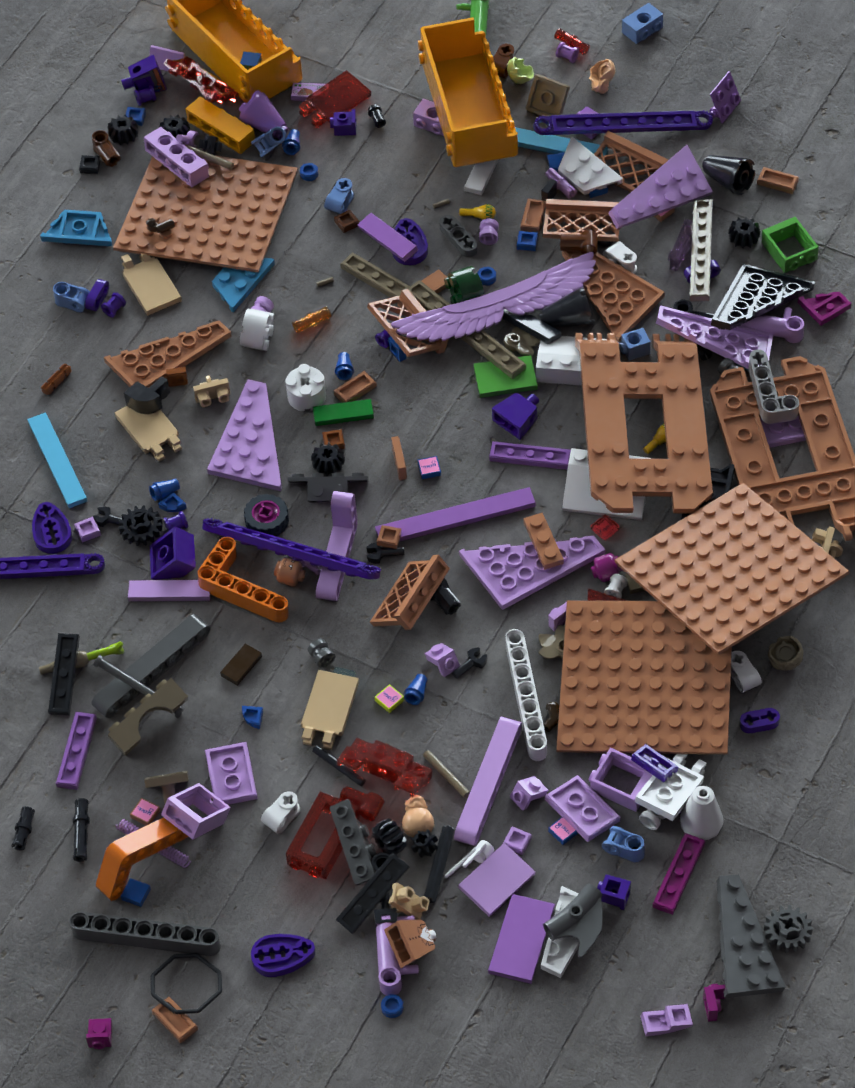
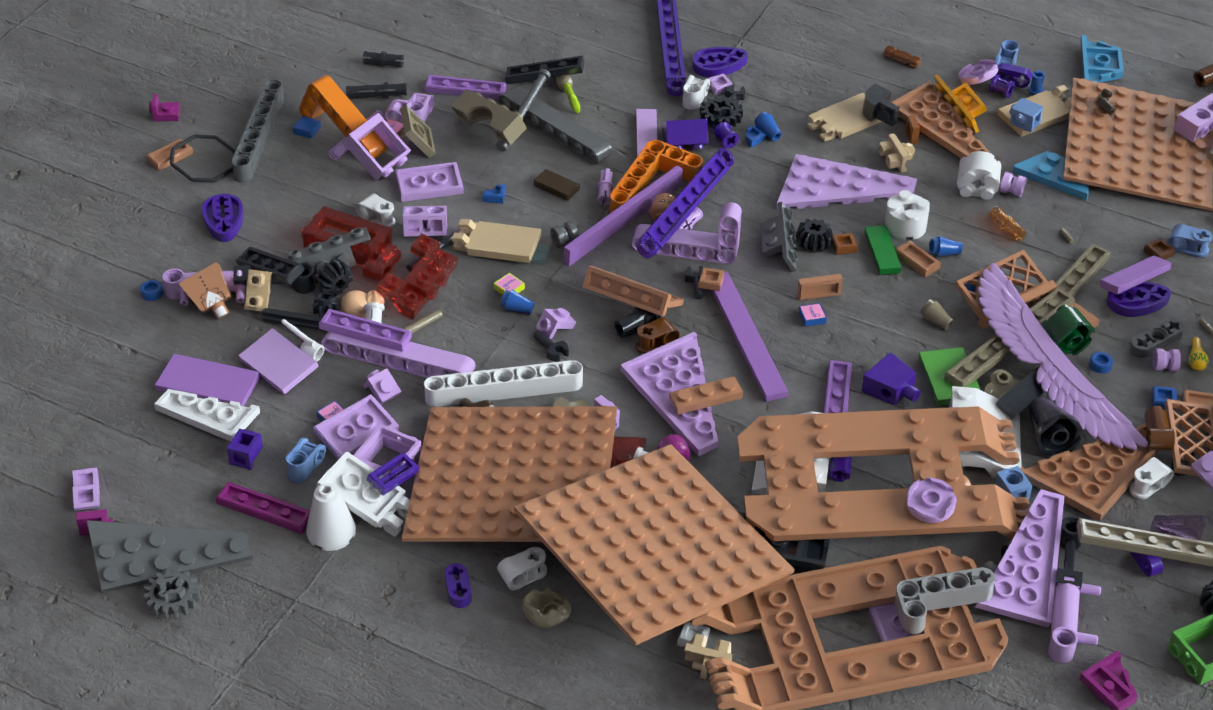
camera: 85 degrees right, 10 degrees down
(57, 460) = (801, 62): medium azure tile -> none
(89, 164) = (1191, 65): black tile -> none
(93, 319) = (978, 73): none -> lavender tile
(105, 545) = (694, 92): none -> white piece
(112, 787) = (420, 103): none -> lavender piece
(115, 280) = (1036, 83): none -> blue pin
(137, 334) = (964, 102): none -> light orange bracket
(168, 287) = (1026, 114): none -> medium blue brick
(250, 621) = (605, 186): none -> lavender axle
(264, 505) = (739, 190): black wheel -> none
(297, 606) = (621, 216): none -> medium lavender tile
(302, 767) = (425, 220): none -> lavender brick
(431, 379) = (936, 314): none -> dark tan cone
(440, 802) = (374, 311): none -> white bush
(462, 581) = (655, 335): none -> reddish brown piece
(469, 801) = (365, 330): none -> medium lavender tile
(517, 840) = (325, 379): lavender tile -> none
(579, 920) = (207, 410): dark grey pin -> none
(605, 527) = (731, 459): clear red tile -> none
(680, 383) = (931, 500): none -> lavender tile
(756, 293) = (1115, 603): wing -> none

